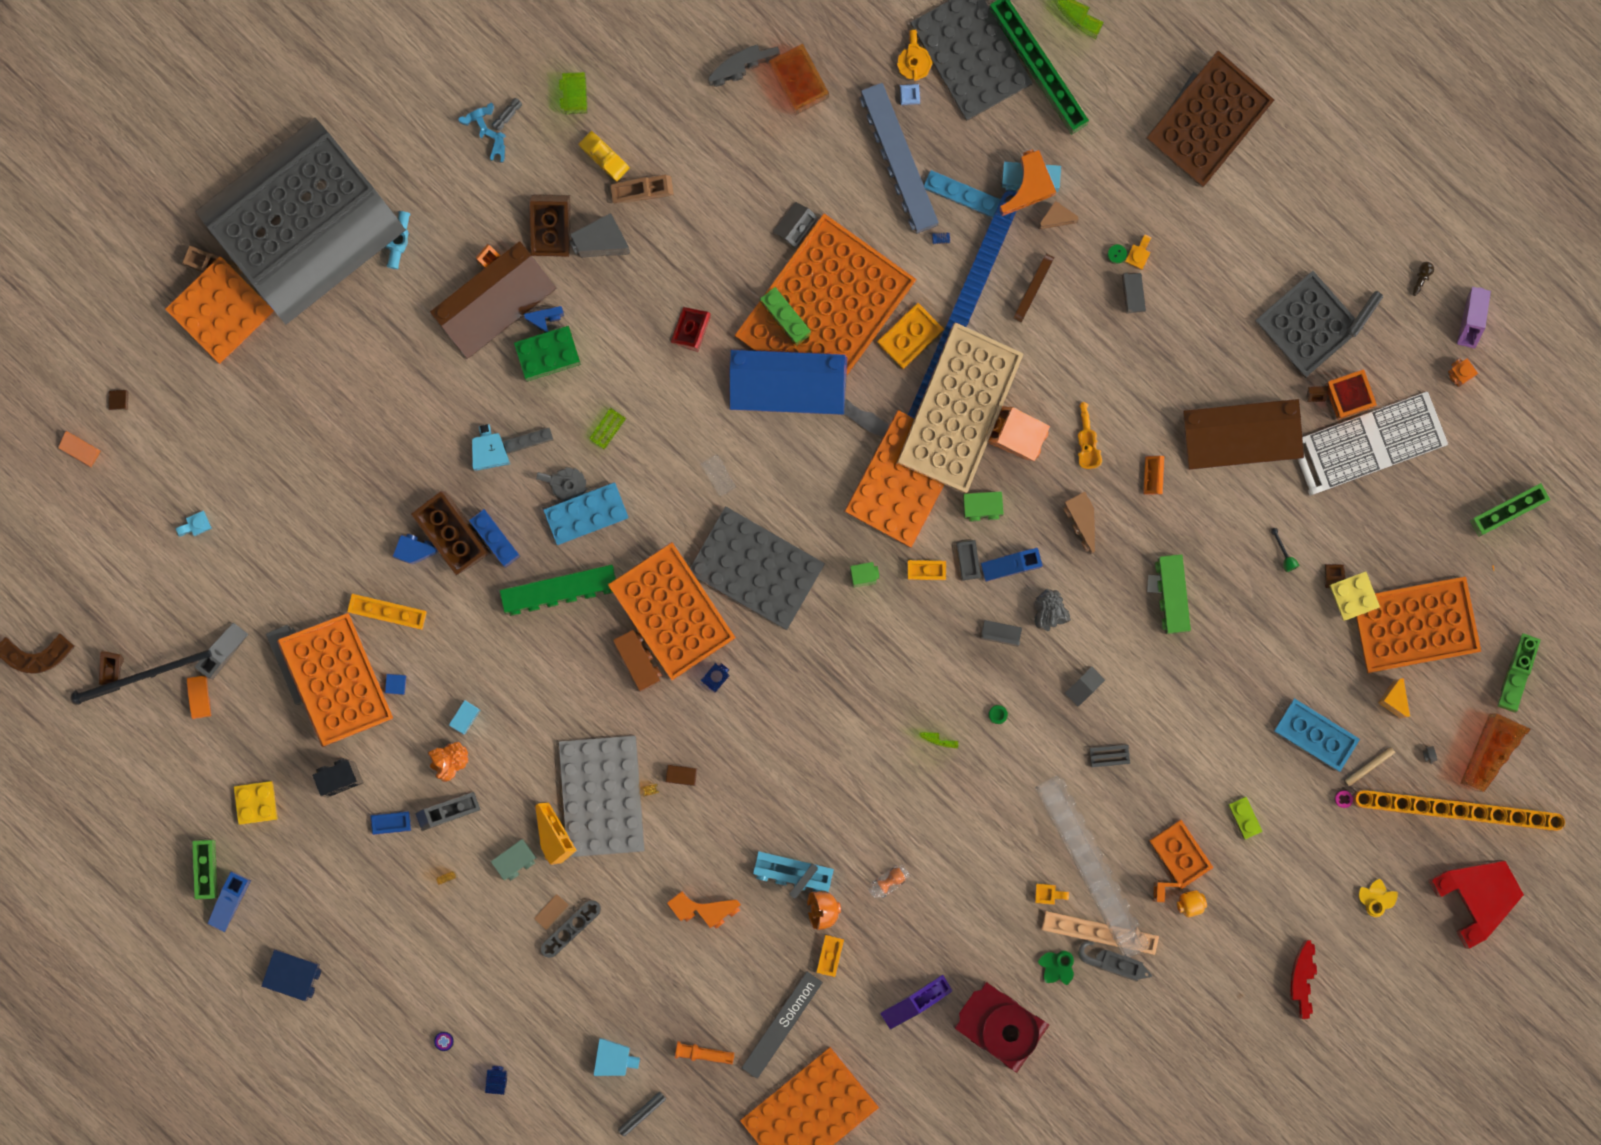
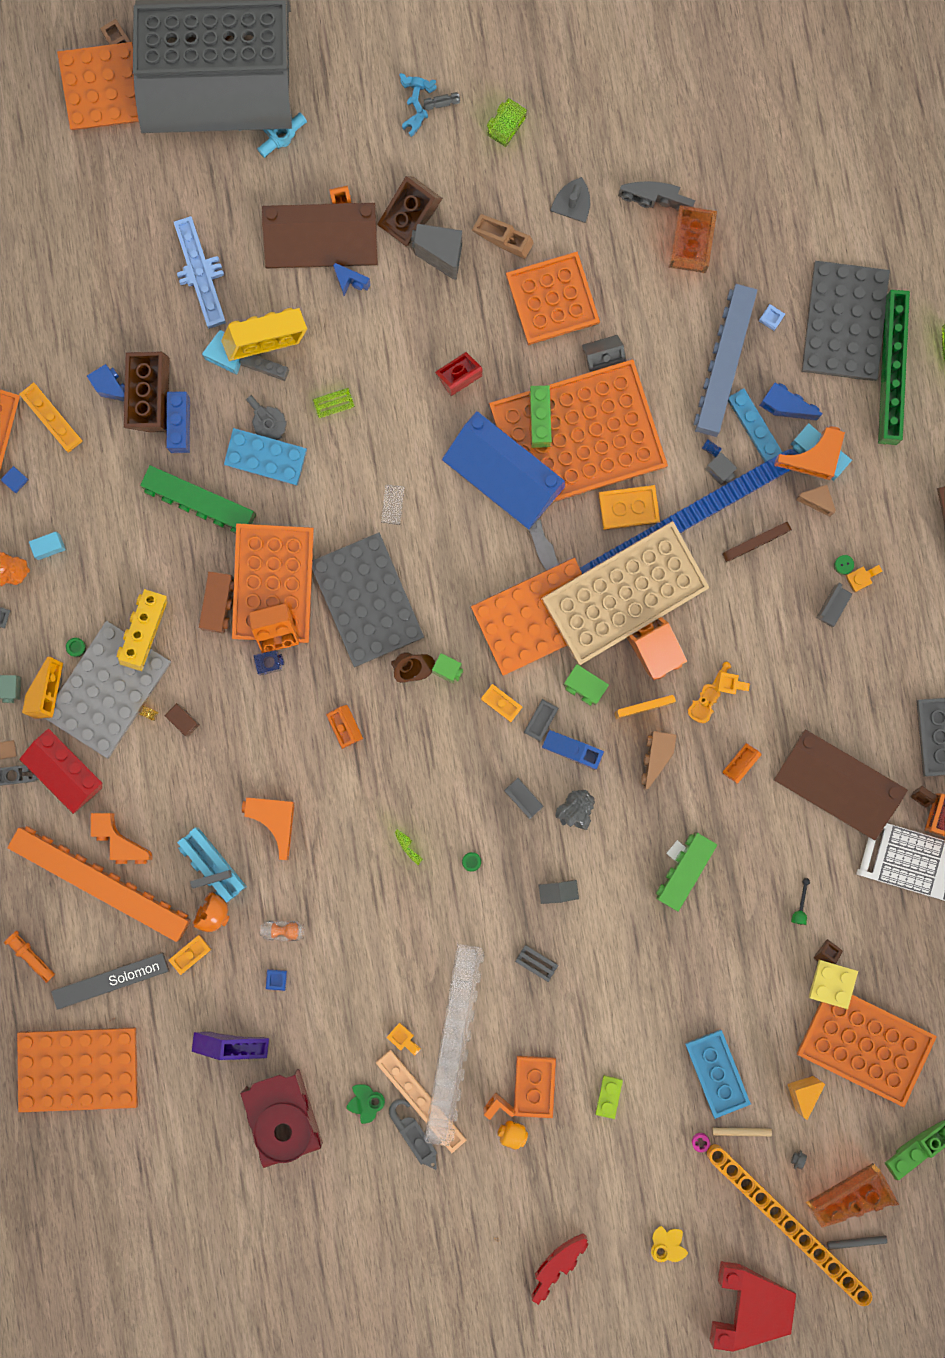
camera: 35 degrees right, 0 degrees up
(417, 402) = (200, 272): none -> light blue hinge
(513, 415) = (263, 333): none -> yellow brick
(547, 353) = (331, 308): green brick -> none
(550, 781) = (75, 647): none -> green tile
(596, 726) = (142, 630): none -> yellow brick
(603, 156) = (492, 187): yellow piece -> none
(616, 888) = (61, 771): none -> red slope
(676, 117) = (573, 201): none -> dark grey shield
(701, 646) = (274, 628): none -> orange slope
(715, 954) = (99, 883): none -> orange brick
(721, 211) = (552, 298): none -> orange plate
(814, 795) = (276, 817): none -> orange arch
(815, 683) = (344, 726): none -> orange slope
(834, 595) = (412, 667): none -> reddish brown piece
(913, 924) = (276, 979): none -> blue tile
(915, 60) = (796, 293): light orange piece -> none
(962, 250) = (721, 469): none -> dark grey brick
(970, 159) = (785, 404): none -> blue slope
(1043, 488) = (645, 706): none -> light orange tile
(1096, 418) = (729, 683): none -> light orange plate
(1522, 785) = (856, 1242): none -> dark grey bar

